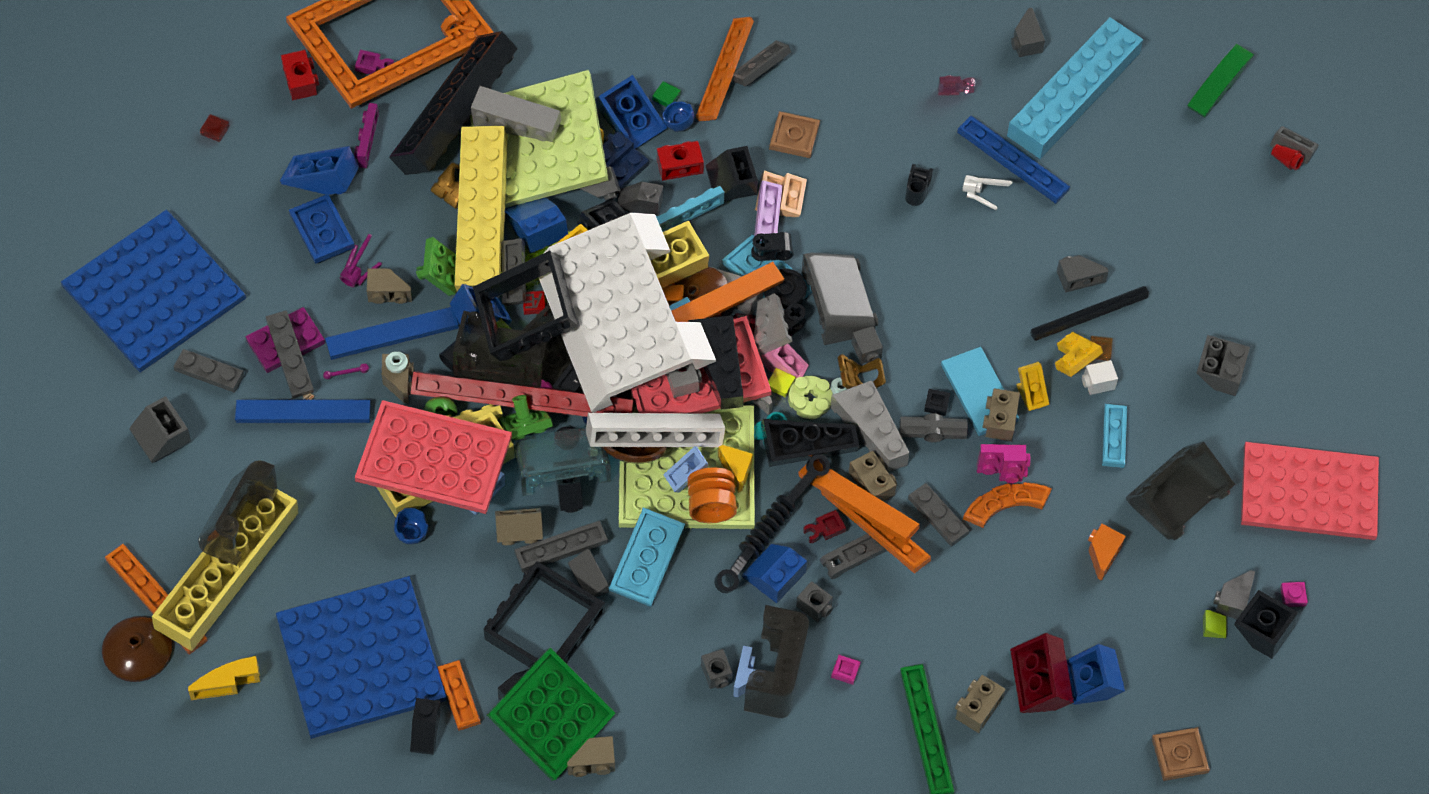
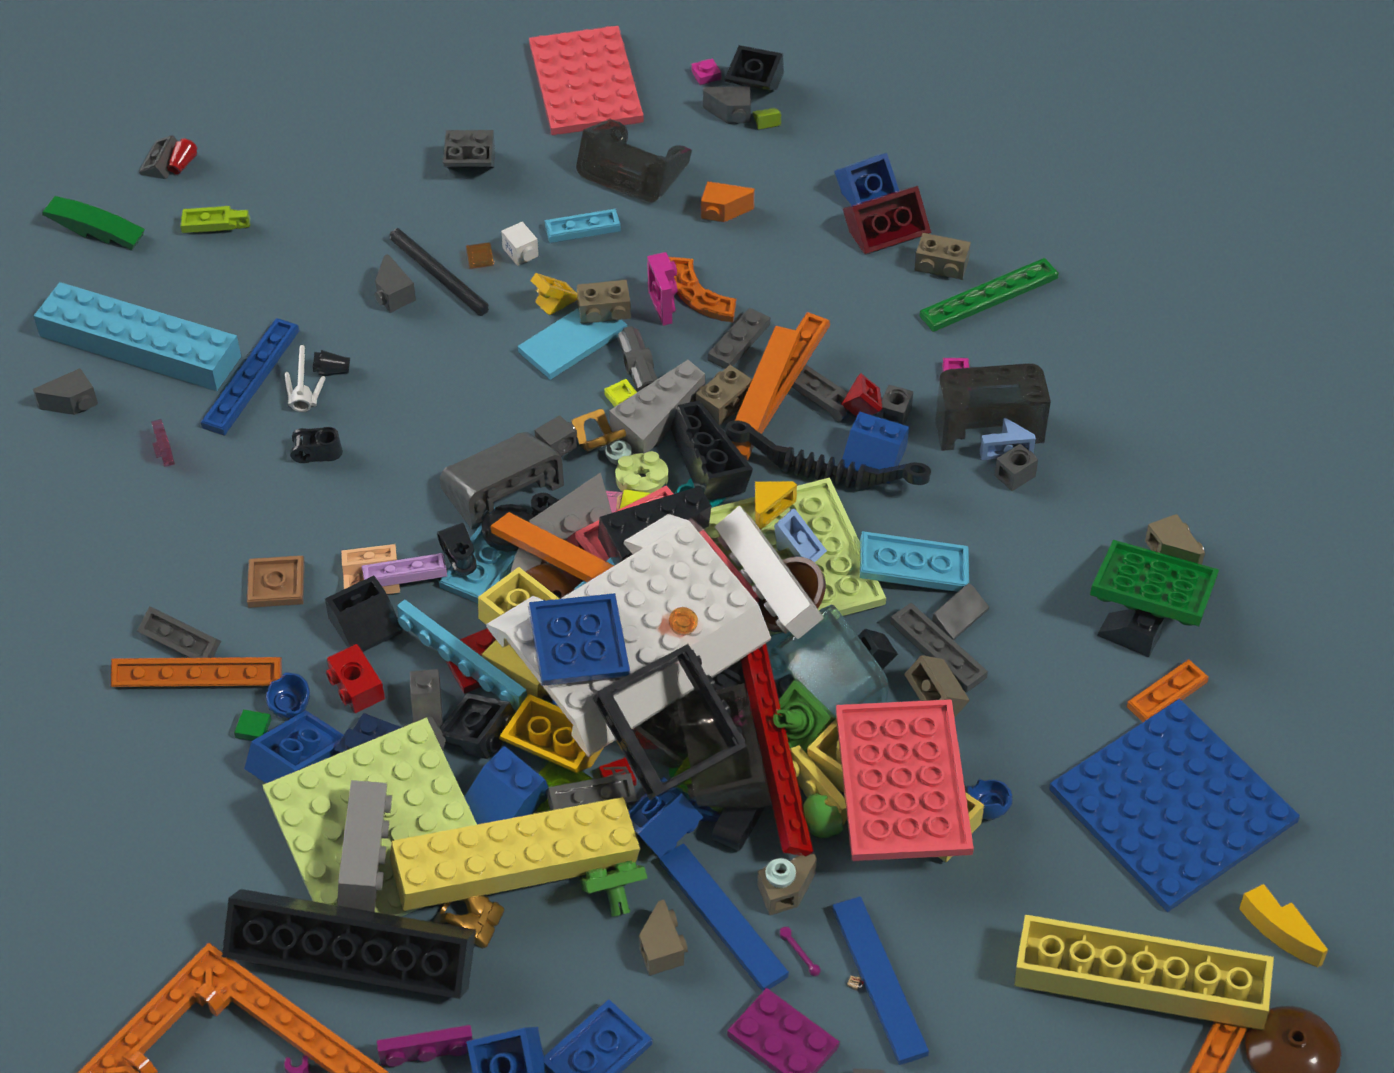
camera: 105 degrees left, 10 degrees down
(249, 485) = (1089, 958): clear smoke windscreen -> none
(289, 354) = (810, 1013): dark grey plate -> none
(352, 274) = (655, 988): magenta plant -> none
(425, 726) = (1224, 705): black slope -> none
(506, 608) = (1047, 599): black window -> none
(599, 329) = (683, 621): none -> clear orange plate
(603, 253) = (578, 639): none -> blue plate
(711, 495) = (826, 502): orange wheel -> none
(827, 525) = (798, 419): dark red plate -> none
(827, 575) = (863, 397): none -> red slope
(903, 408) = (619, 392): none -> neon yellow tile
(937, 402) = (603, 366): black plate -> none
(1004, 211) = (330, 363): none -> black cone
(1077, 352) = (498, 257): yellow plate -> none
(1180, 754) = (914, 116): medium nougat tile -> none
(1201, 164) = (213, 219): none -> lime hinge

